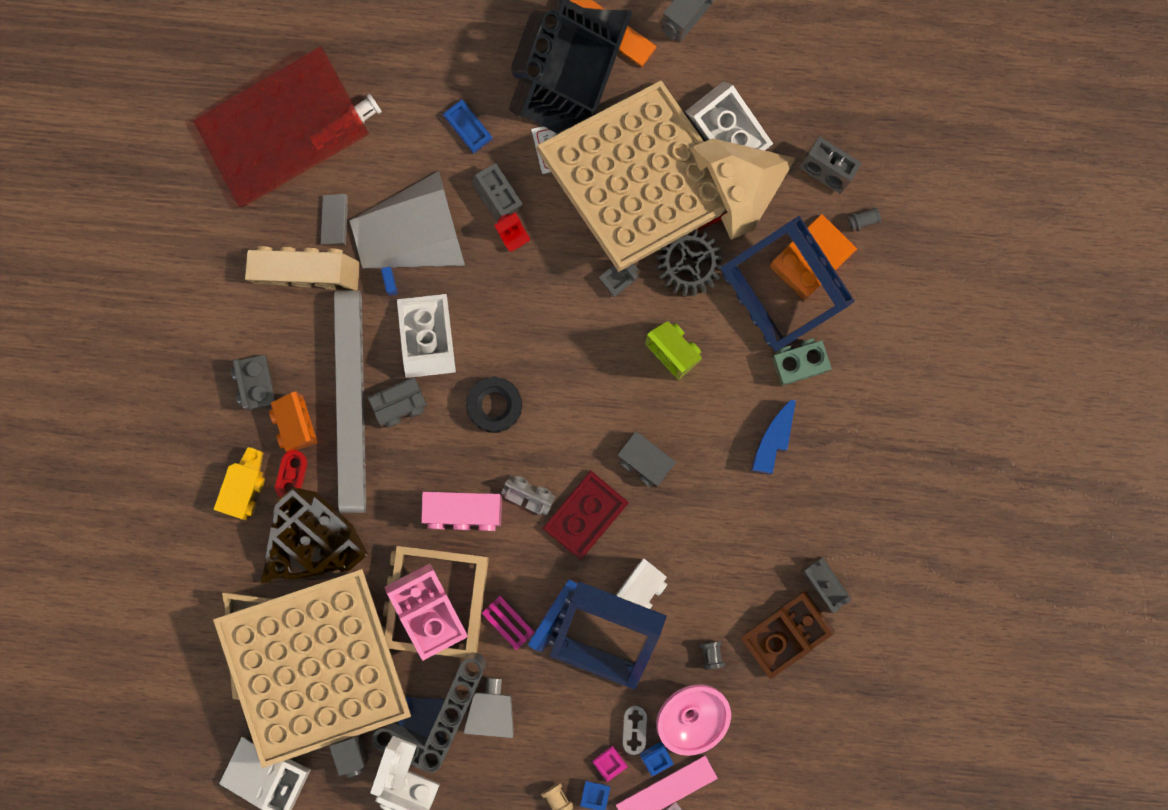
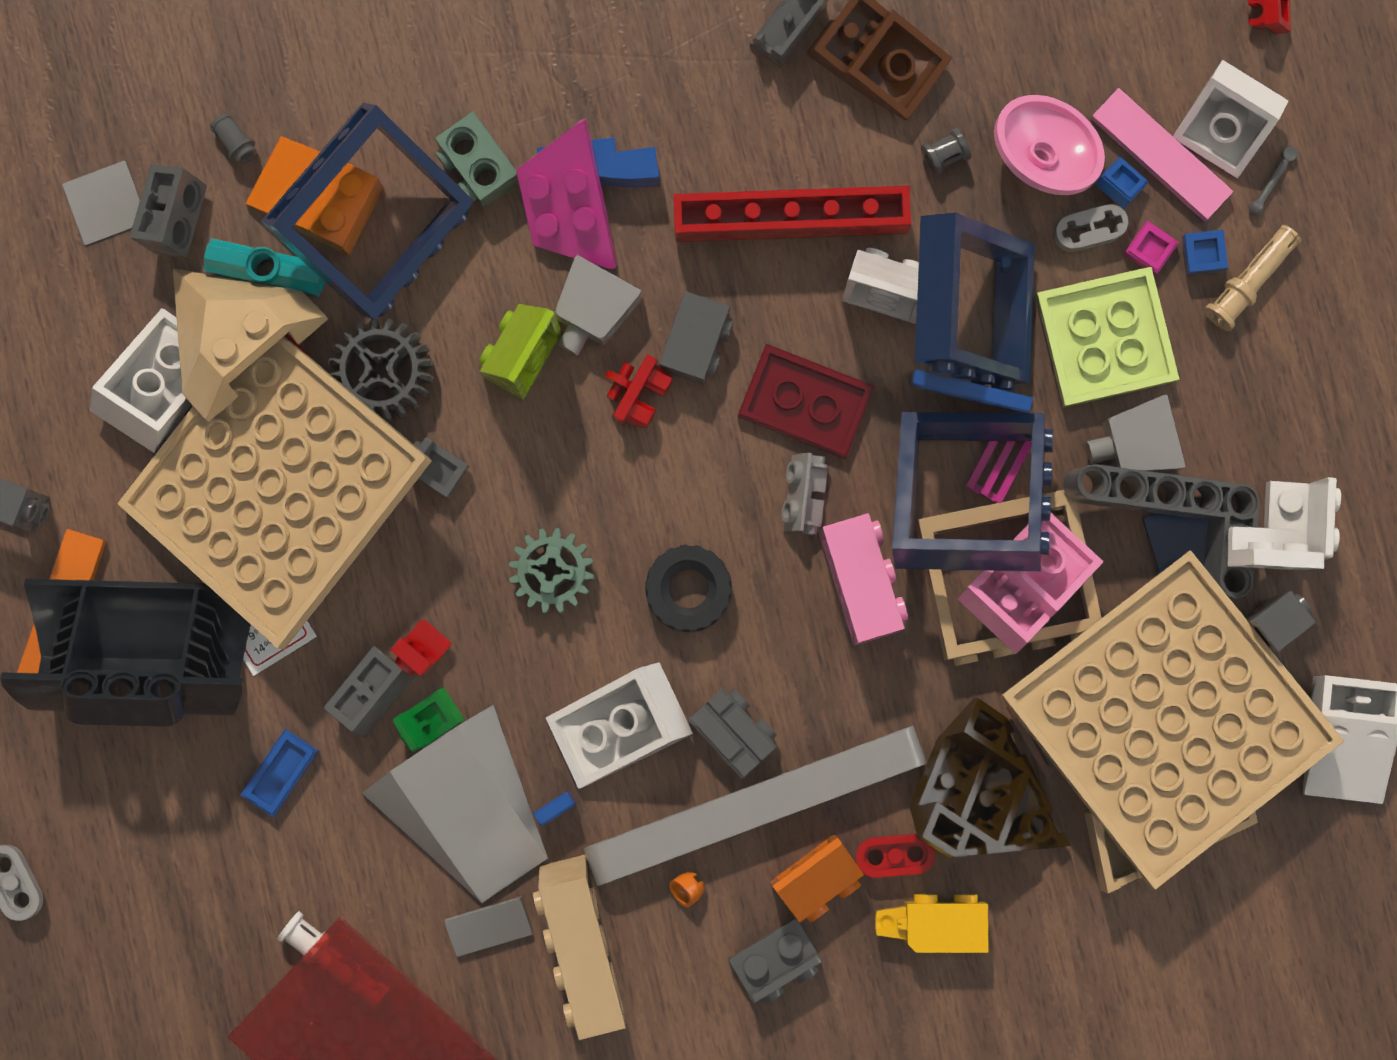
camera: 105 degrees left, 0 degrees up
(315, 343) = (686, 889): none -> orange hinge
(450, 579) = (967, 553): none -> dark blue window
(467, 222) = (428, 720): none -> green bracket
(522, 320) = (553, 553): none -> sand green gear
(562, 715) = (1107, 337): none -> yellowish green plate
(616, 406) = (630, 407): none -> red hips
(687, 403) = (593, 305): none -> light grey torso
(703, 544) = (792, 213): none -> red brick
(757, 408) = (567, 199): none -> dark pink wing
(785, 200) = (242, 261): none -> teal piece
(851, 129) = (103, 202): none -> light grey sticker

